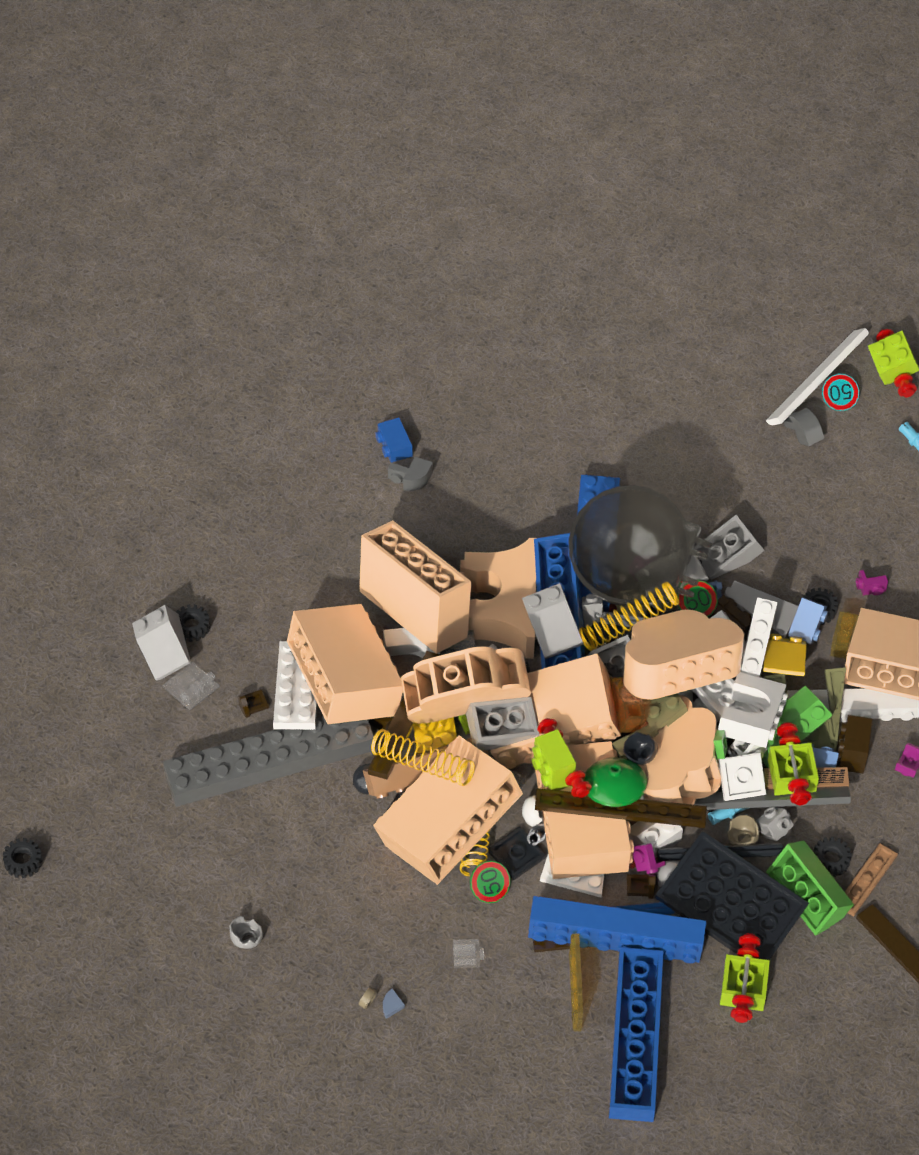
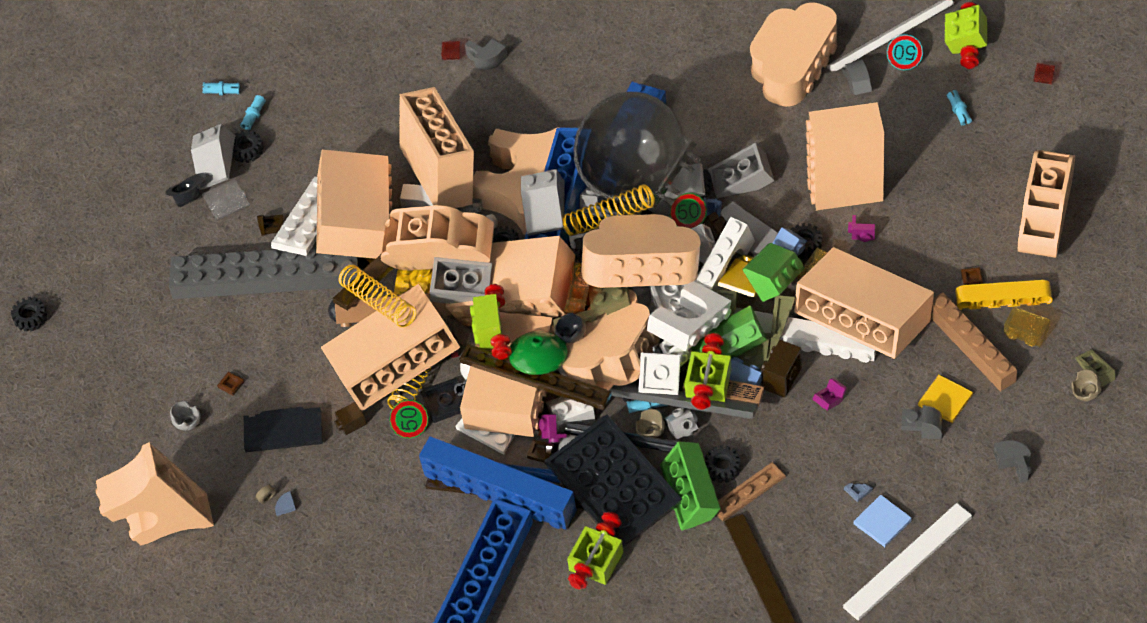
camera: 25 degrees right, 0 degrees up
(137, 565) = (221, 88): none -> medium azure pin
(146, 683) = (187, 190): none -> black piece
(183, 585) = (253, 112): none -> medium azure pin
(259, 1032) = (153, 497): none -> light nougat piece
(278, 885) = (230, 383): none -> reddish brown tile
(357, 922) = (283, 429): none -> black piece
(371, 477) = (450, 50): none -> clear red plate
(394, 440) = (482, 22): blue brick -> none
(425, 895) = (349, 418): none -> dark brown brick
(467, 953) = (364, 475): clear brick -> none
(576, 982) = (445, 520): clear yellow tile -> none
(720, 744) = (645, 339): bright green tile -> none
(731, 412) = (793, 51): none -> light nougat brick
(813, 645) = (772, 270): none -> bright green slope
(844, 511) = (845, 156): none -> light nougat brick

